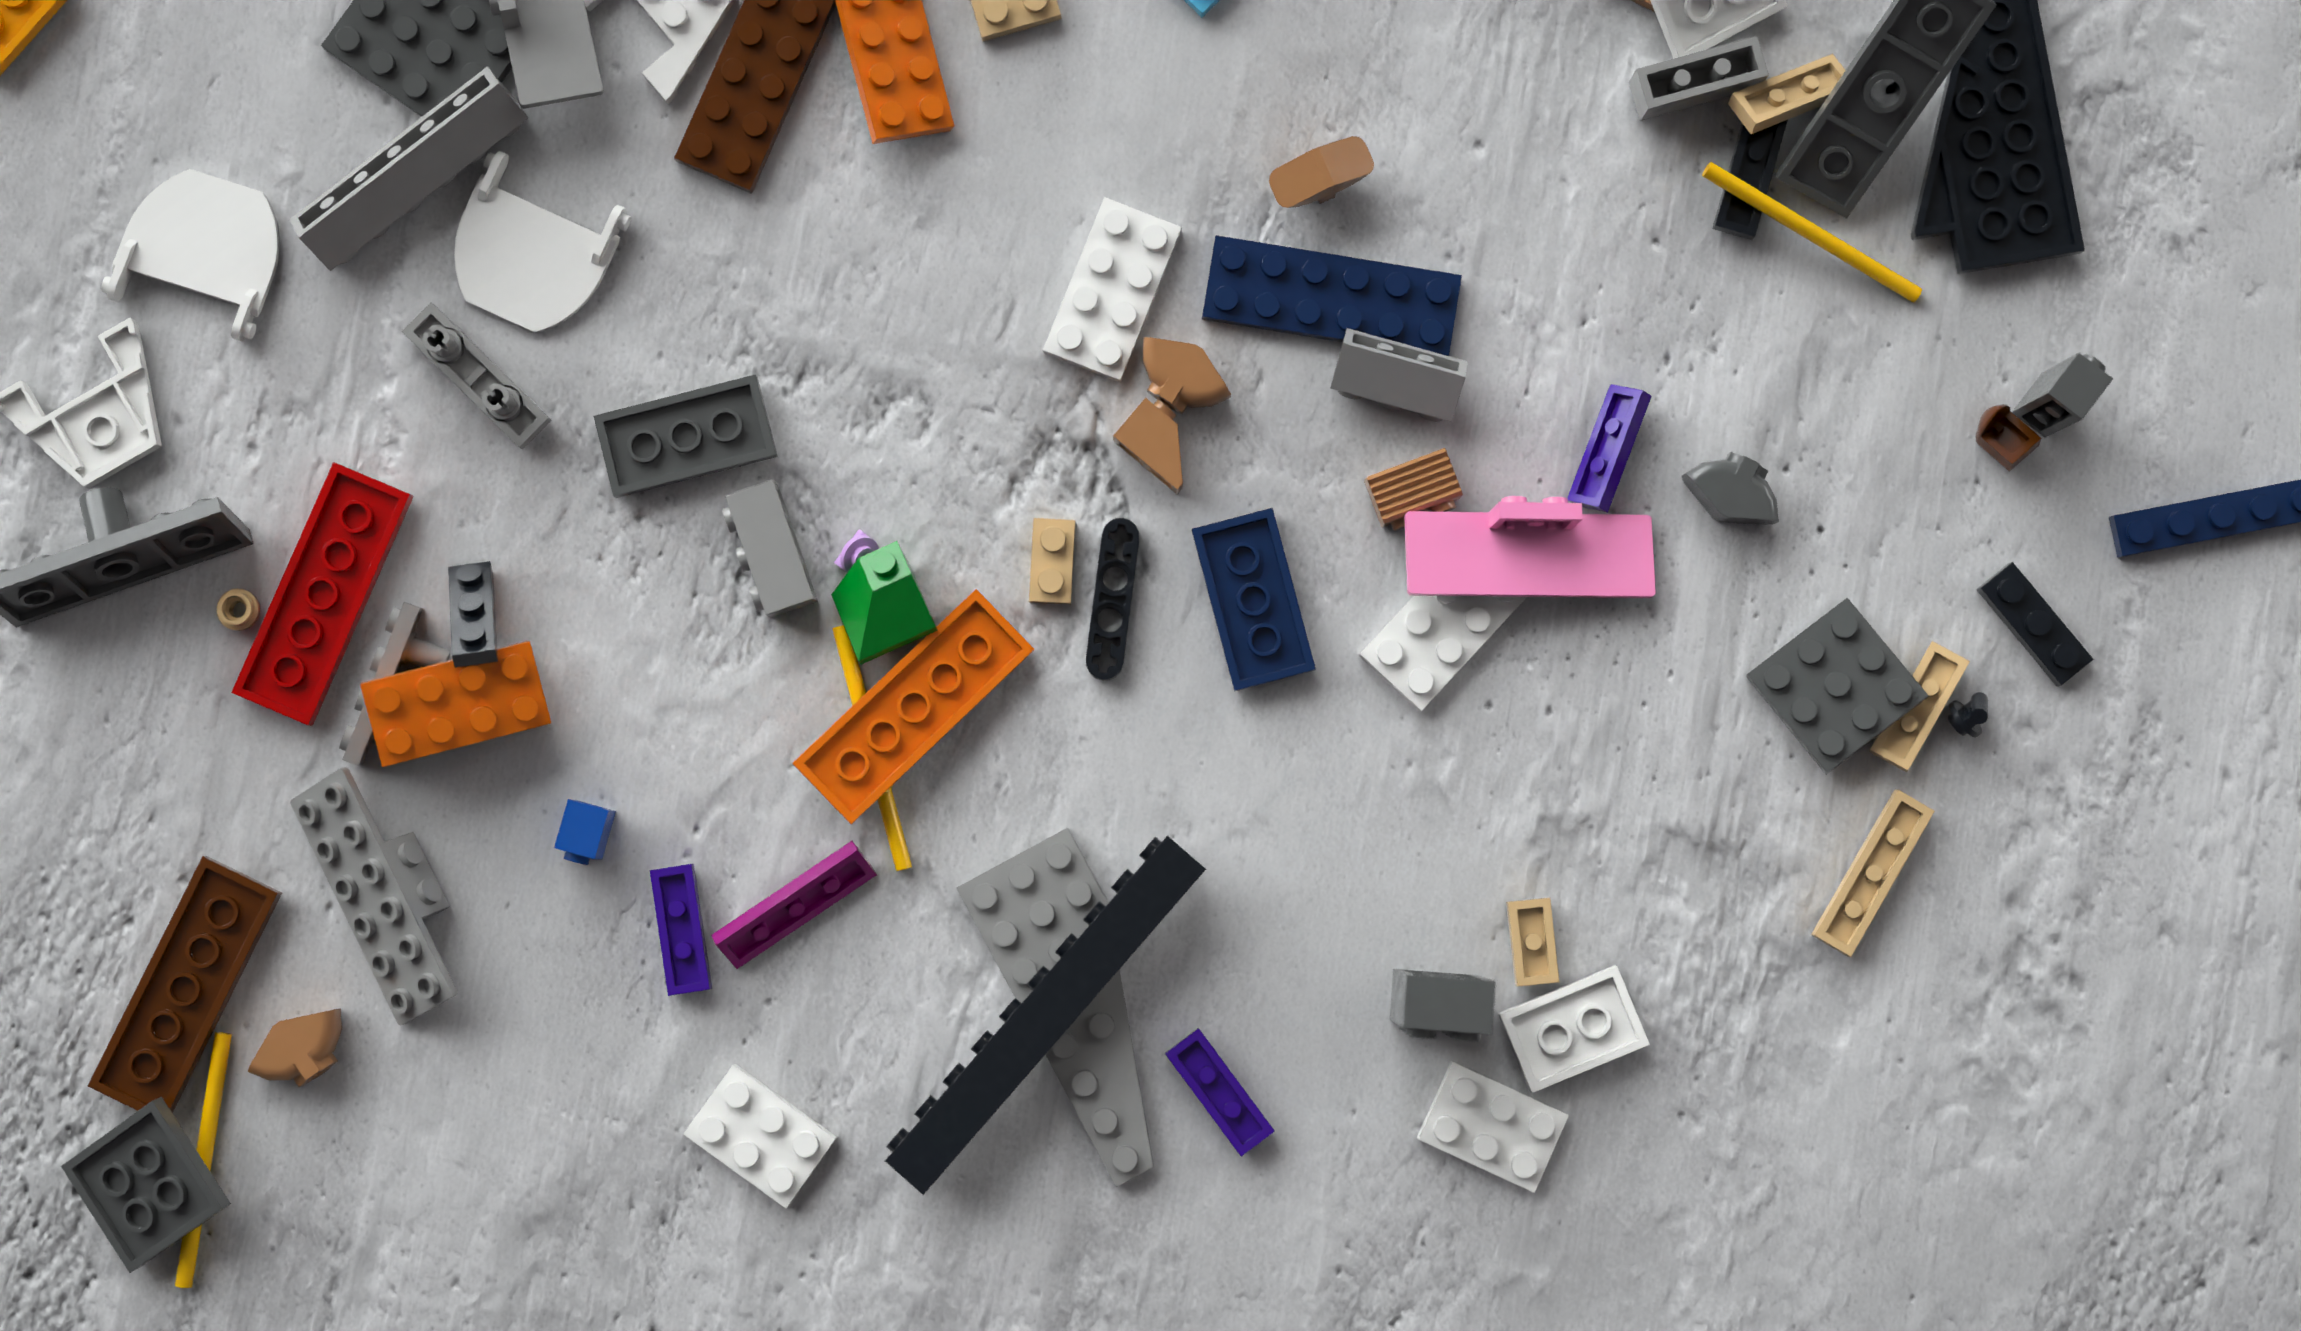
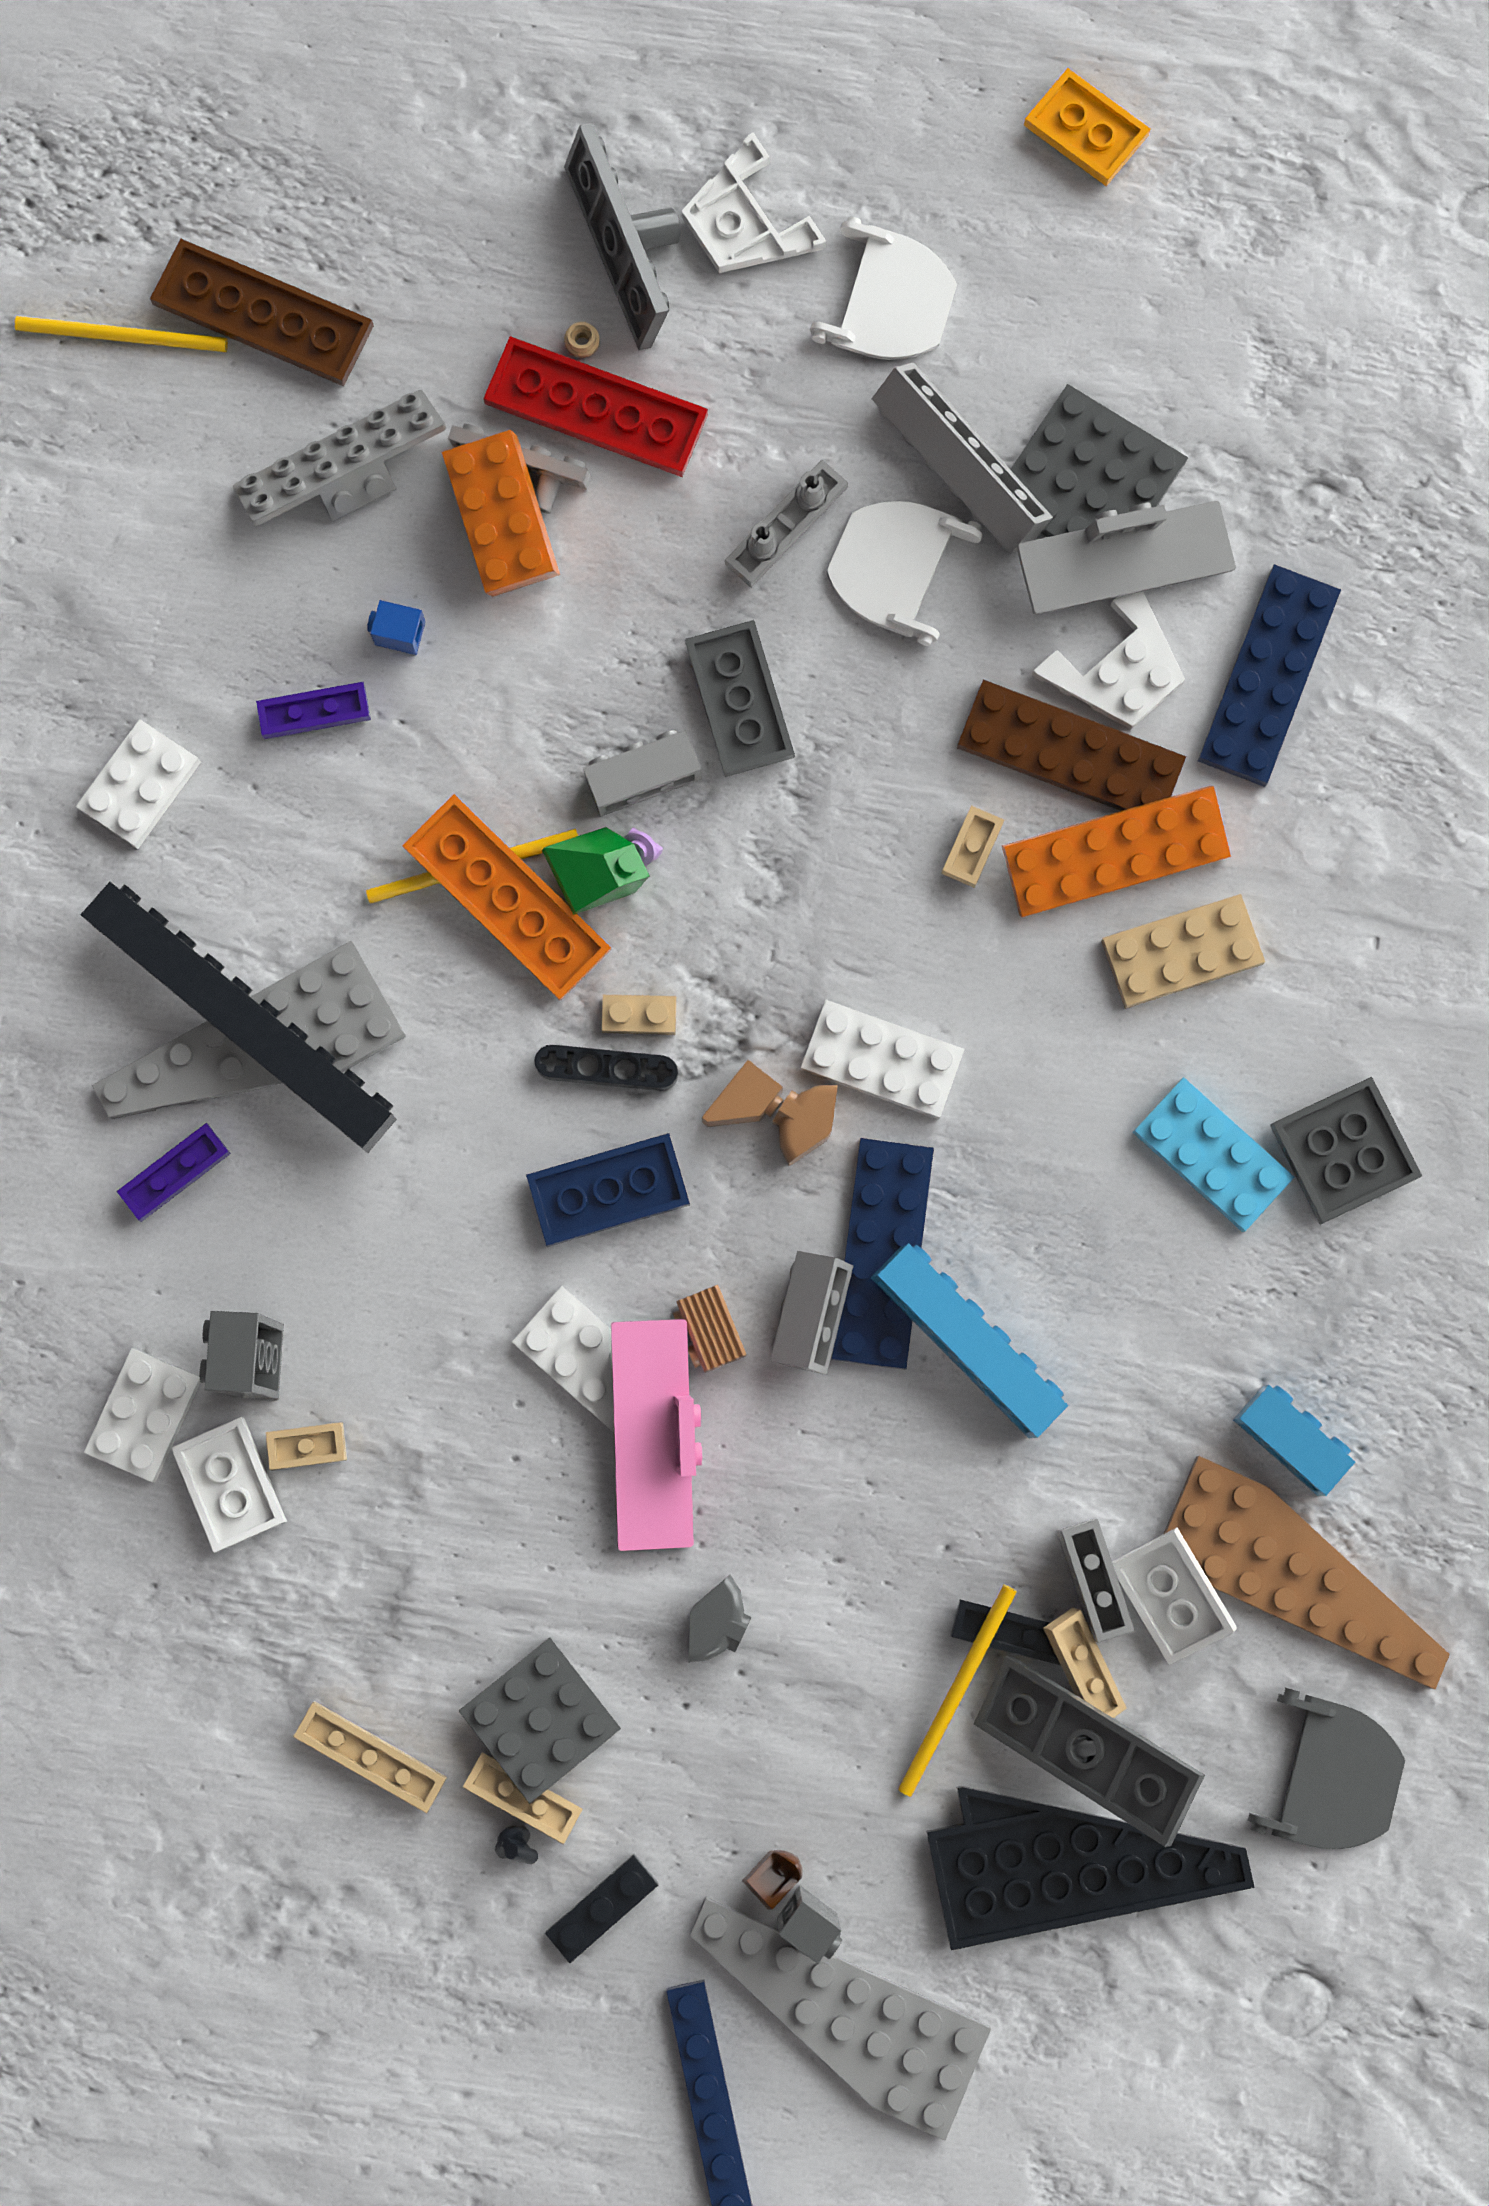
camera: 85 degrees right, 5 degrees down
(145, 1184) = (98, 287): dark grey plate -> none
(299, 1048) = (212, 404): medium nougat piece -> none
(472, 614) = (577, 524): plate -> none
(794, 905) = (334, 803): magenta plate -> none
(870, 177) = (972, 846): none -> tan plate
(1321, 172) = (991, 1237): medium nougat piece -> none
(1434, 202) = (970, 1341): none -> dark azure brick
(1609, 447) = (752, 1506): dark purple plate -> none
(2167, 337) = (877, 2035): none -> light grey wing

